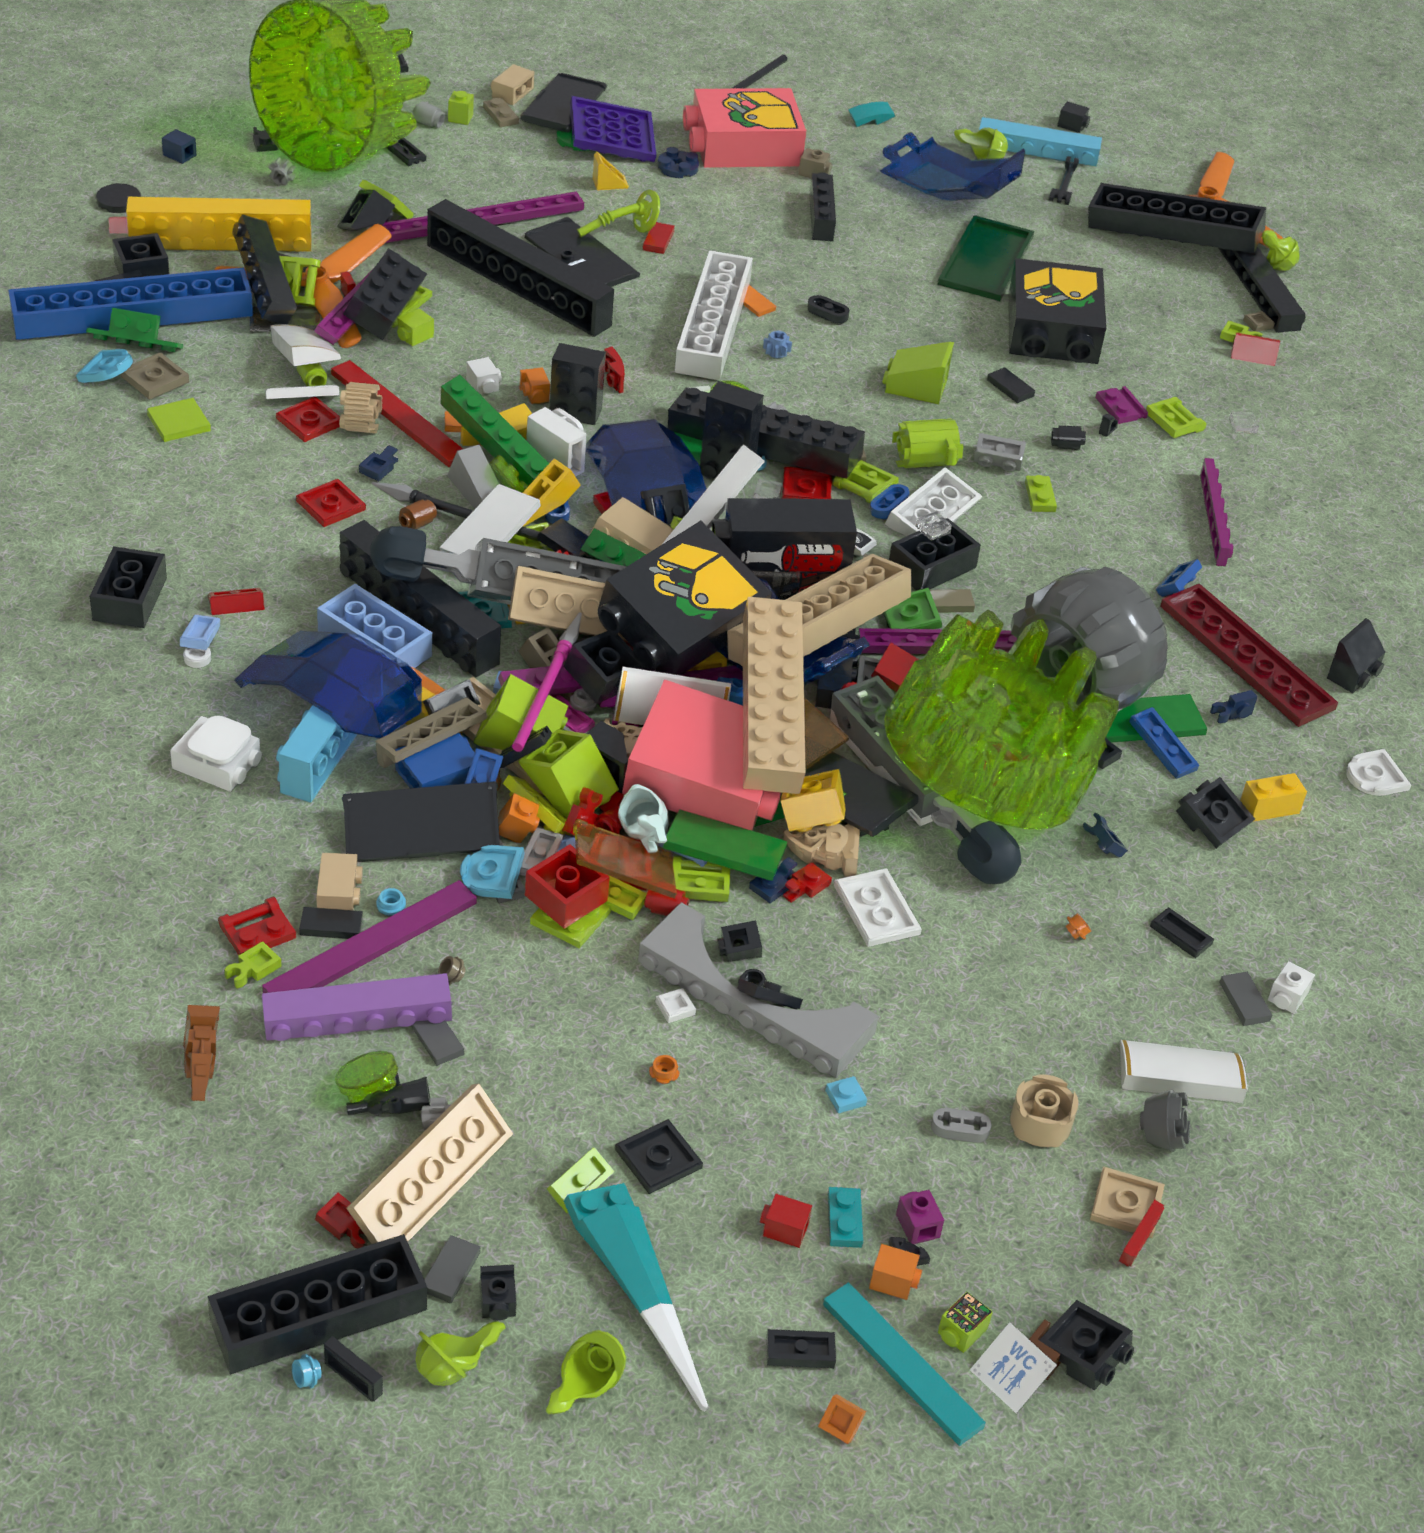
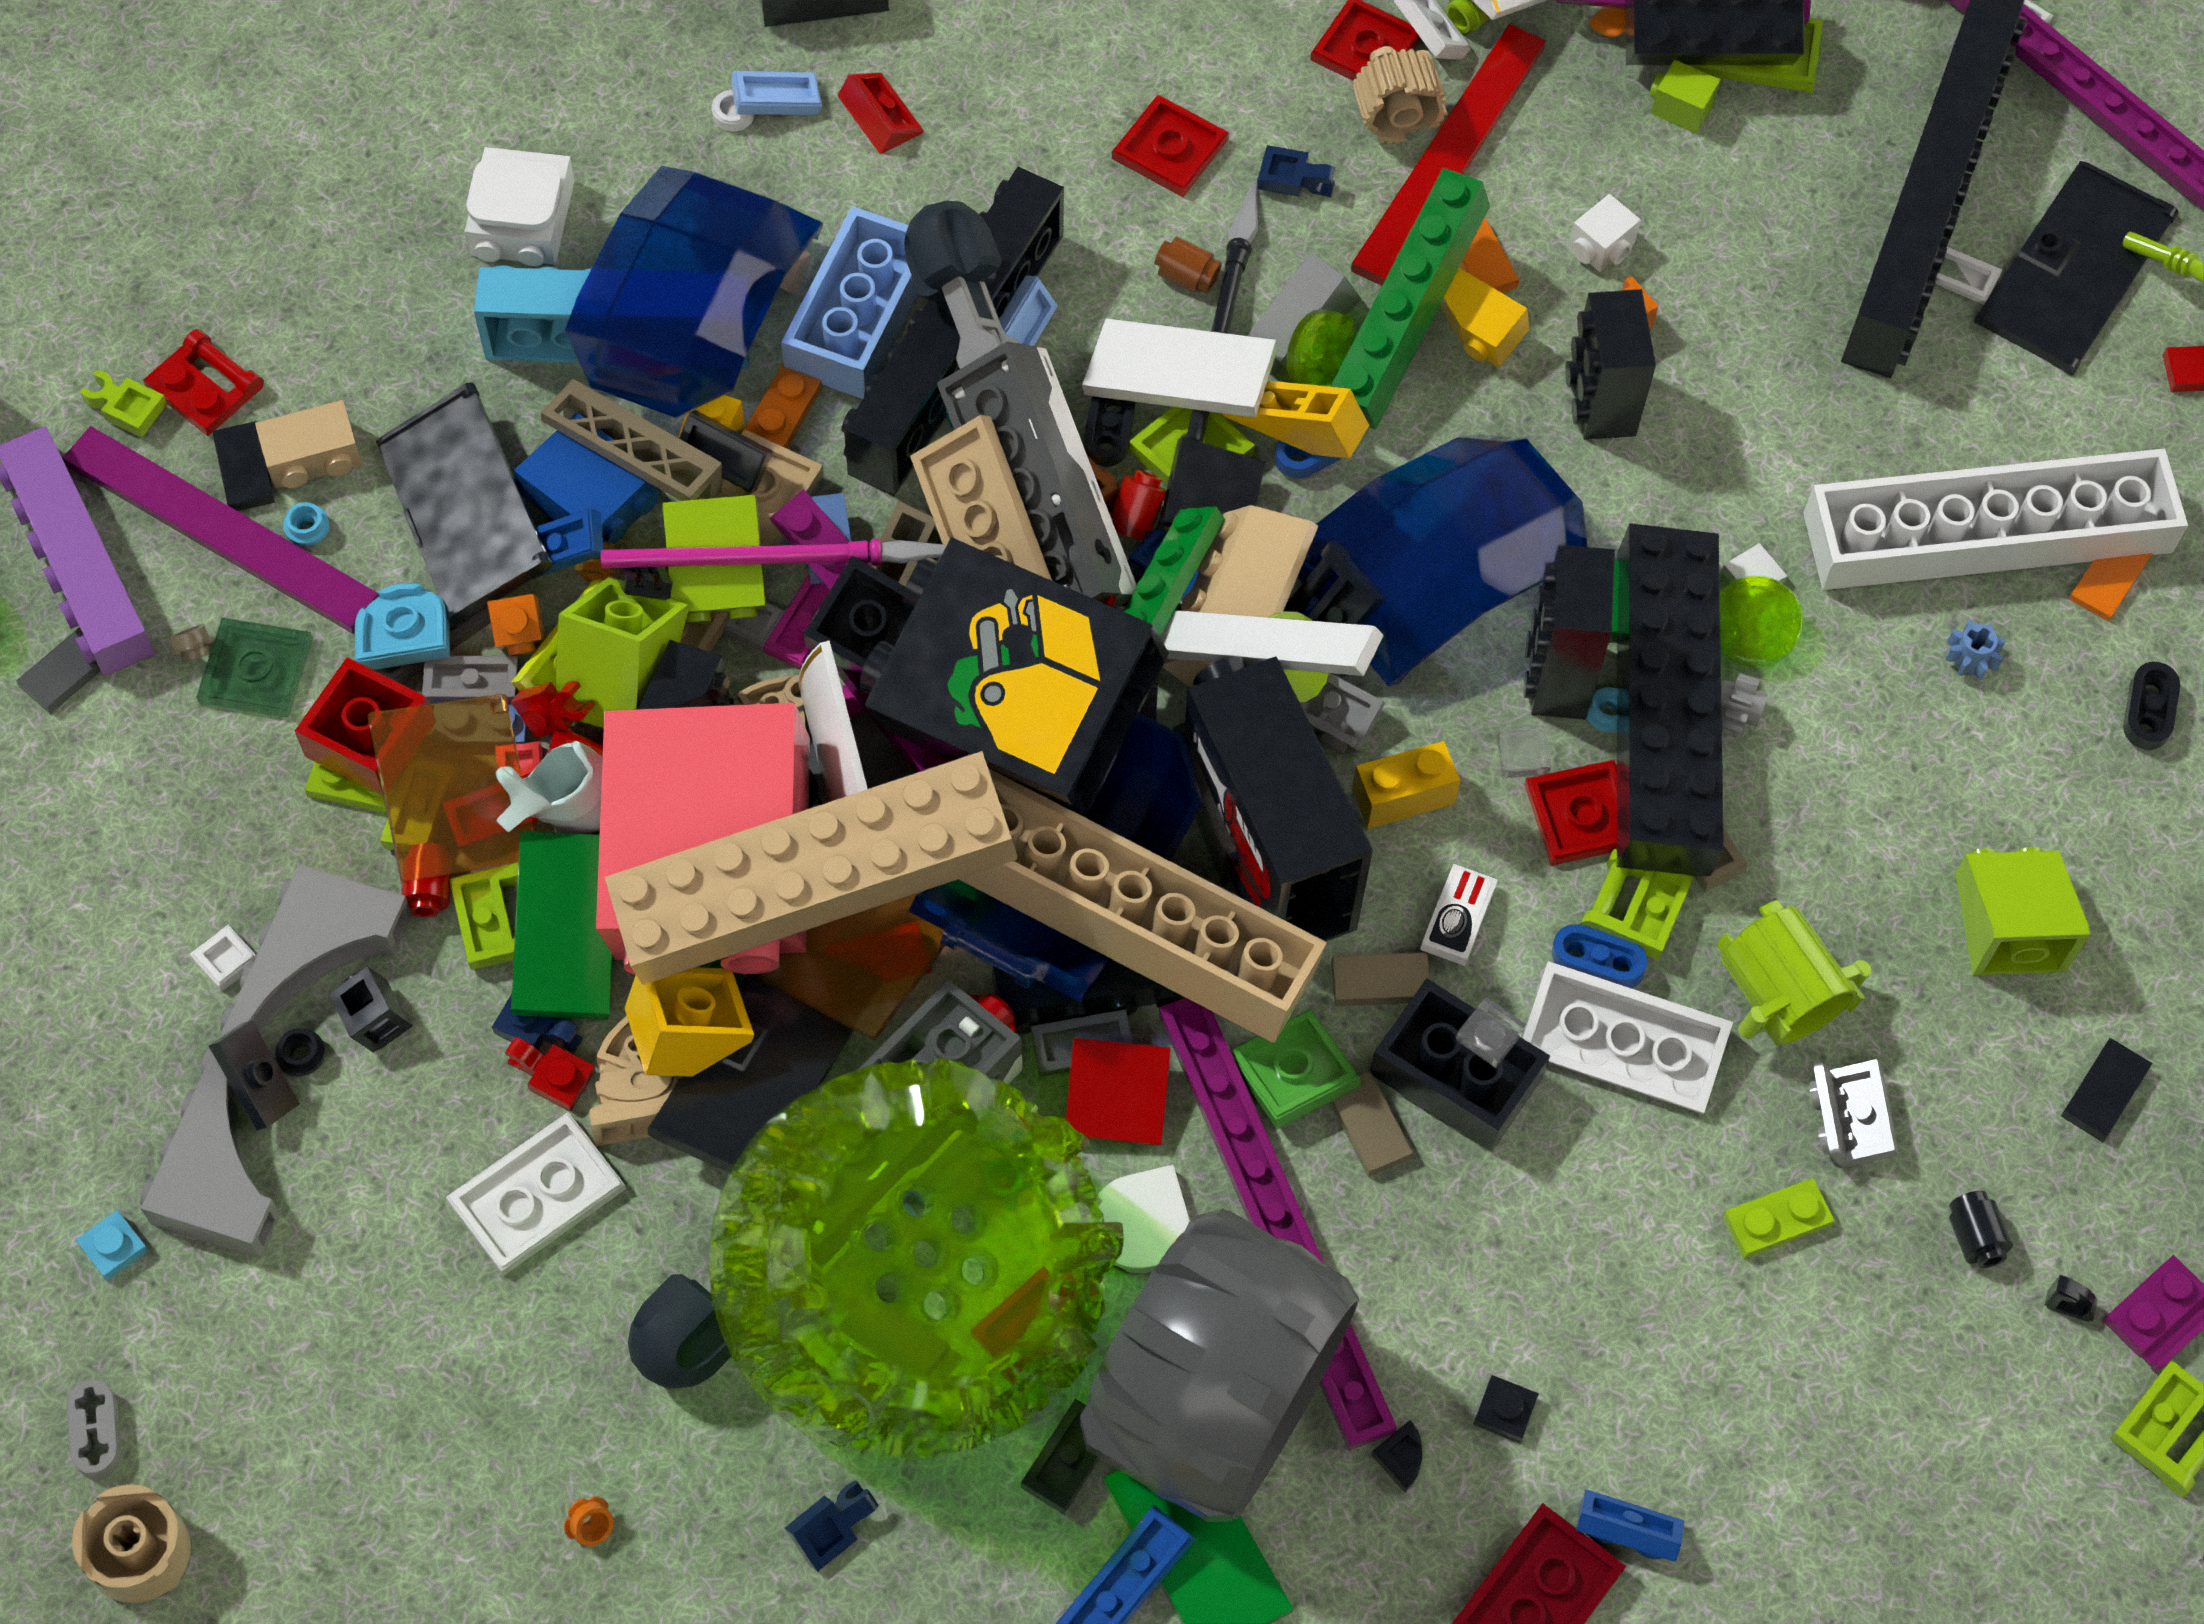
camera: 75 degrees right, 20 degrees up
(481, 948) = (254, 667): none -> clear green tile
(558, 437) = (1457, 388): white brick -> none
(615, 369) = (1737, 421): red slope -> none
(667, 1063) = (81, 967): orange plate -> none
(1215, 512) = (1864, 1567): magenta plate -> none

